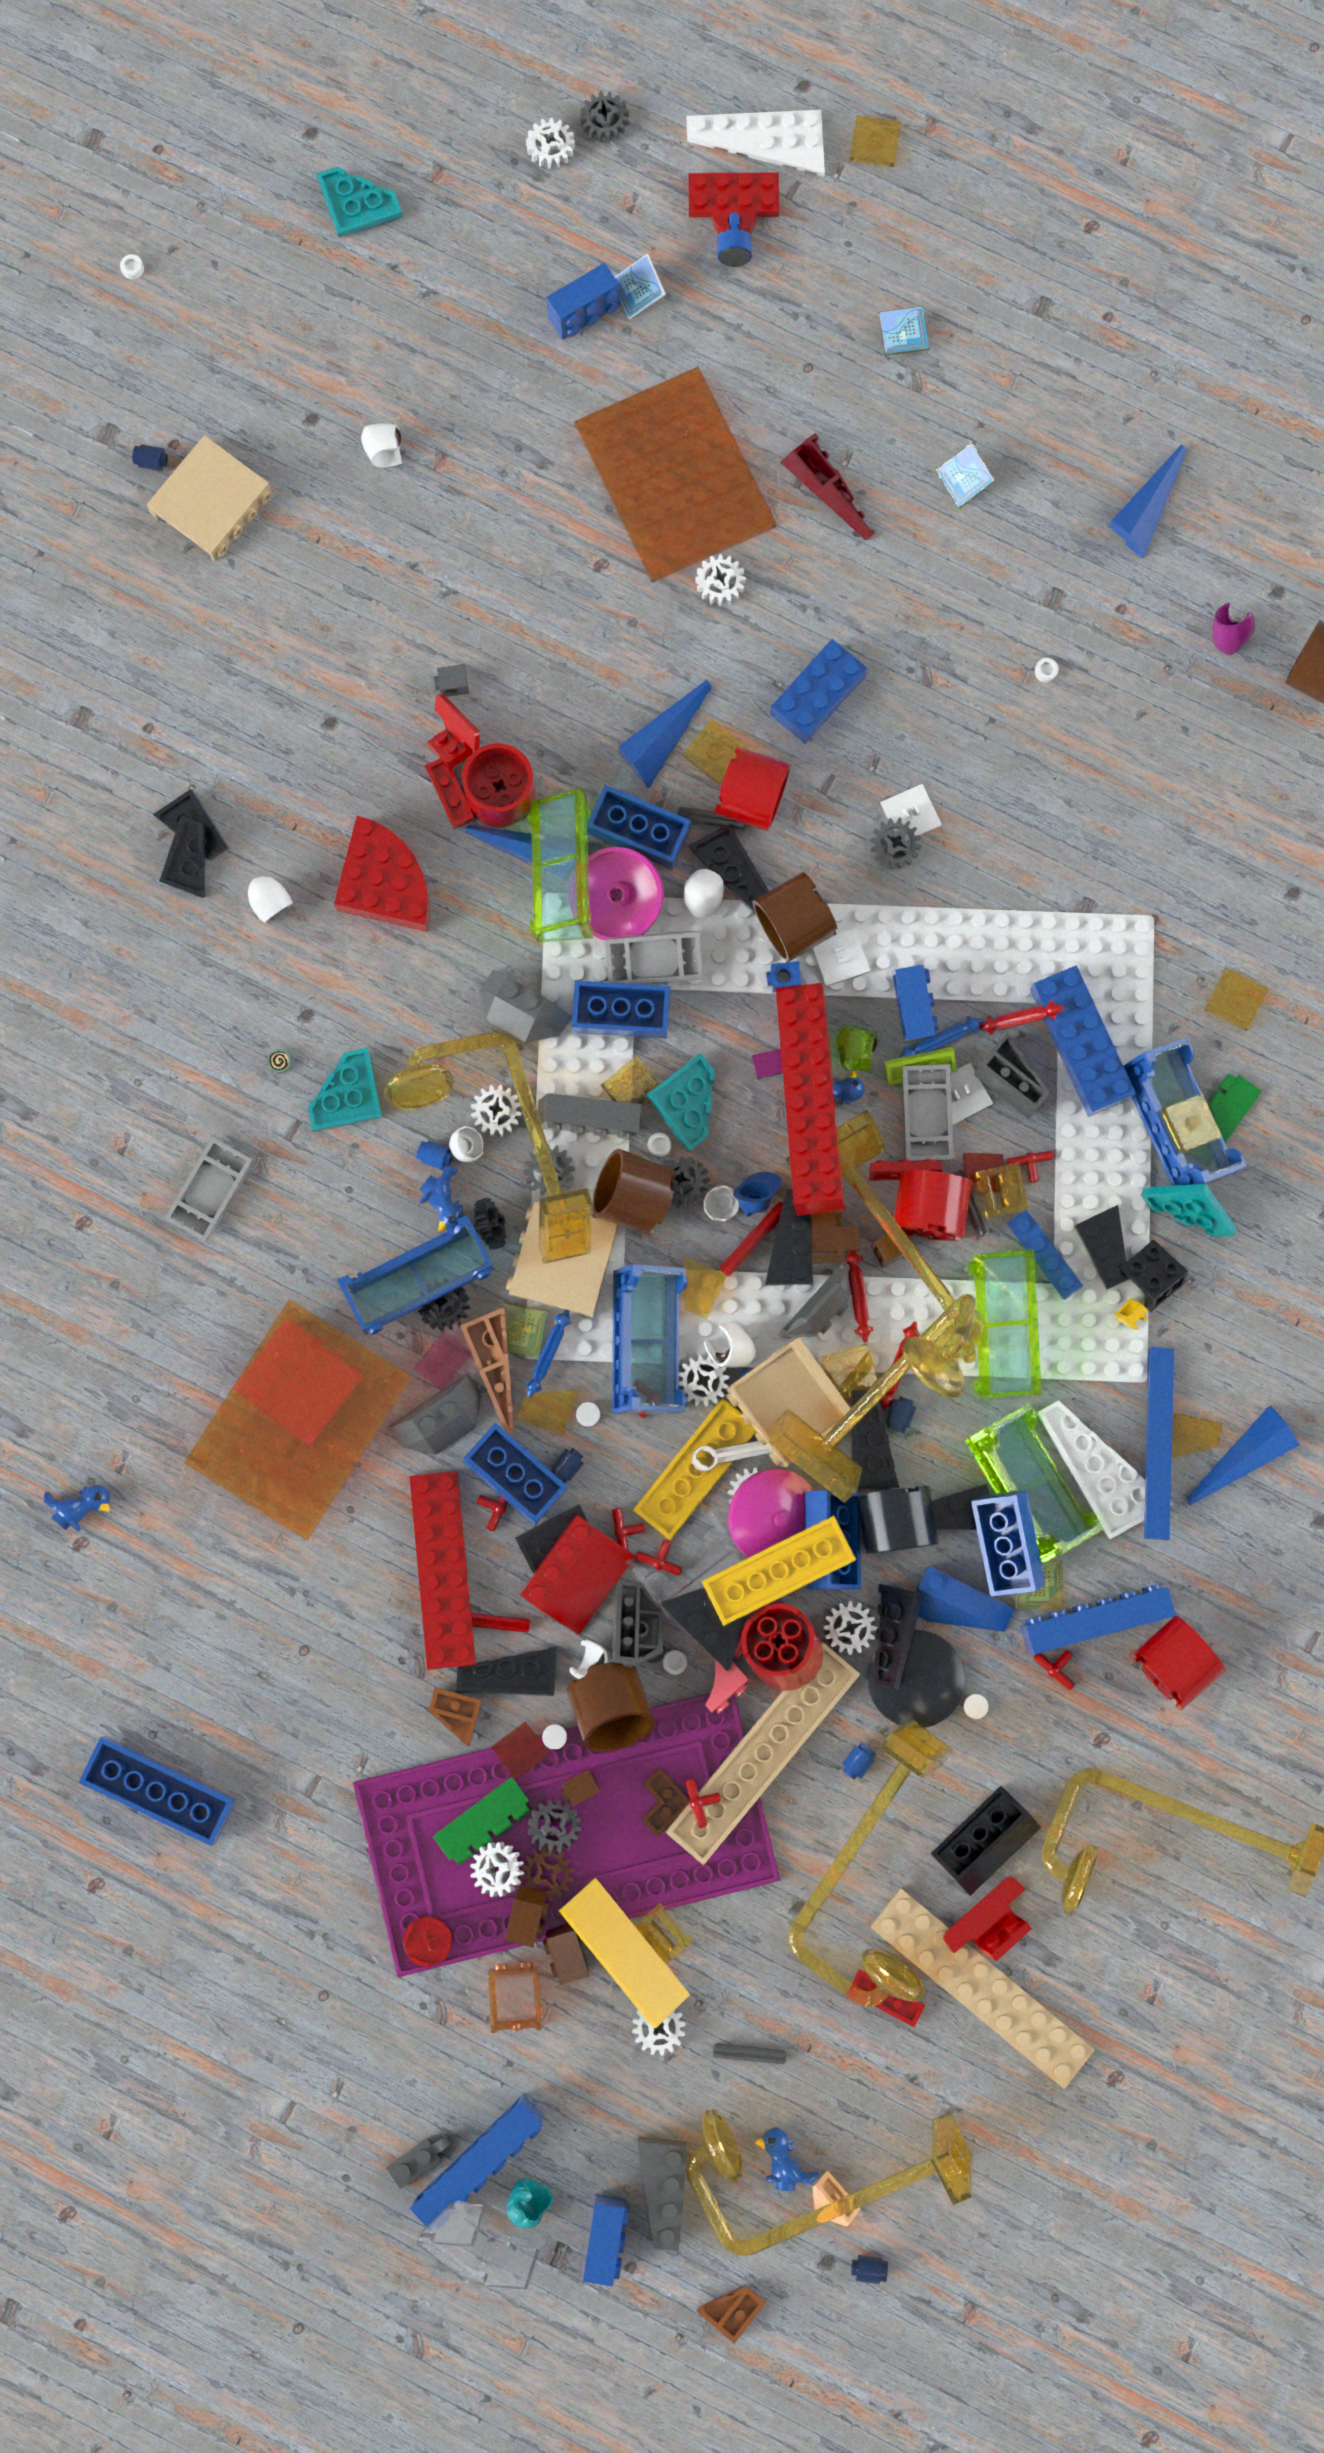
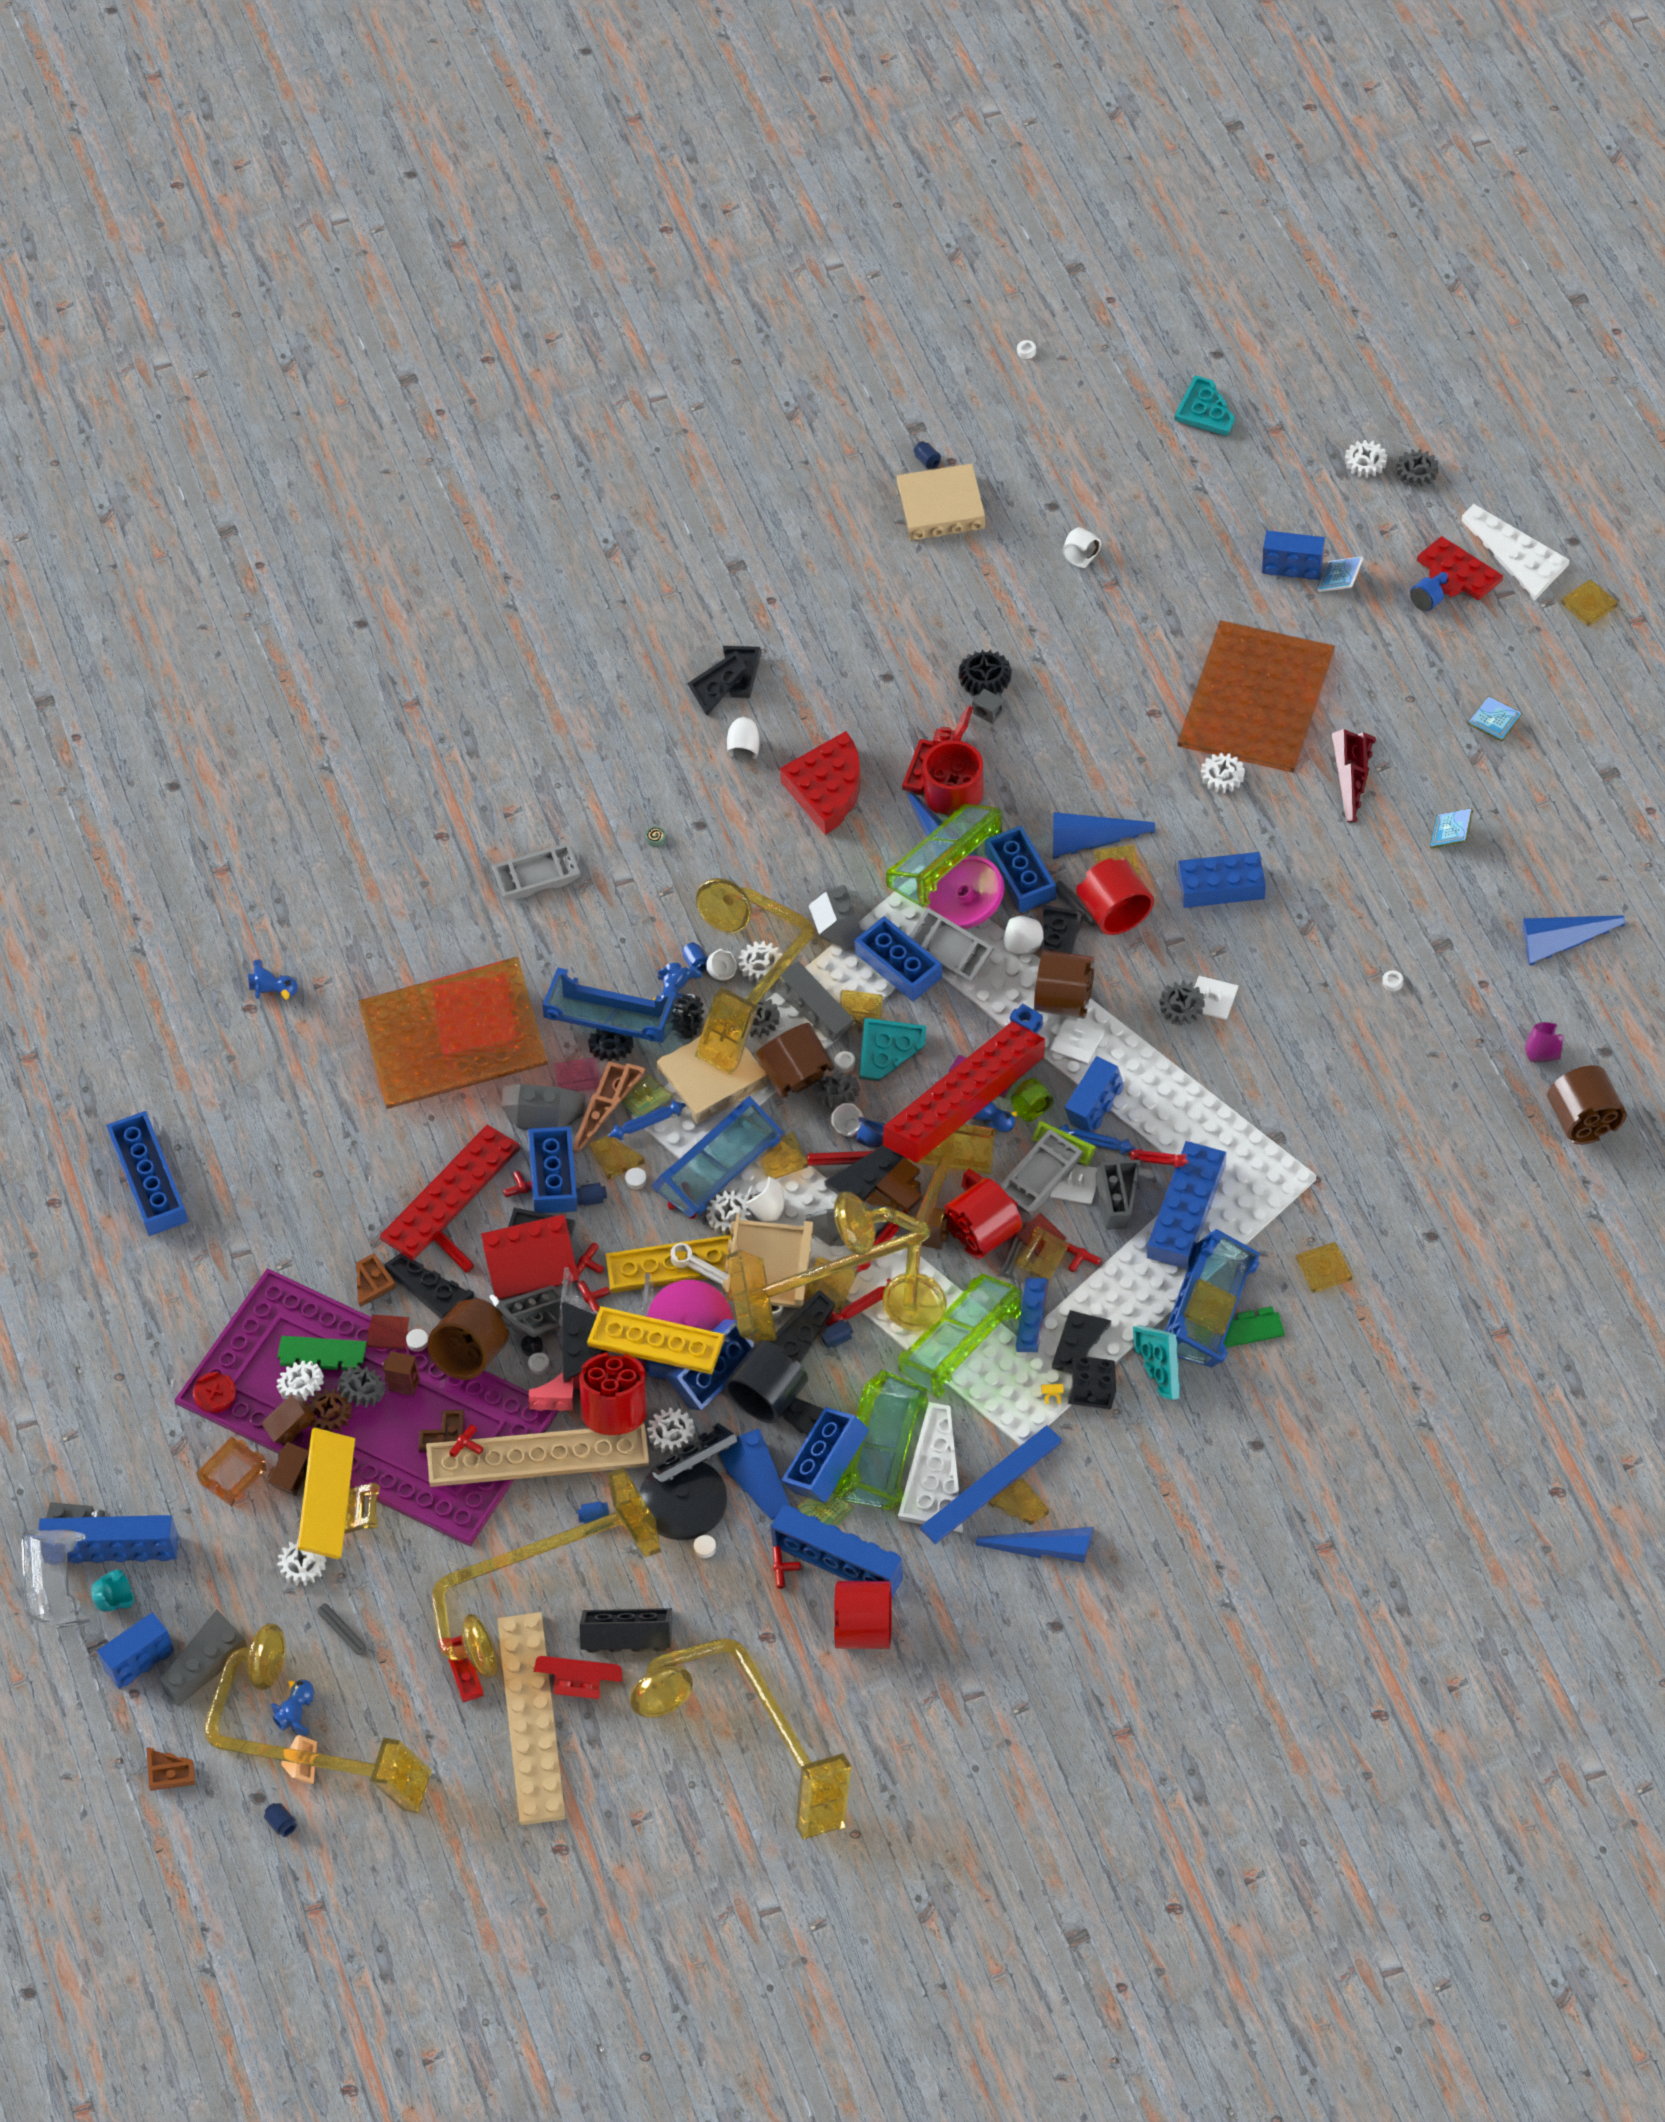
camera: 45 degrees right, 25 degrees down
(347, 1094) = (676, 884): teal plate -> none
(429, 634) = (996, 668): none -> black gear

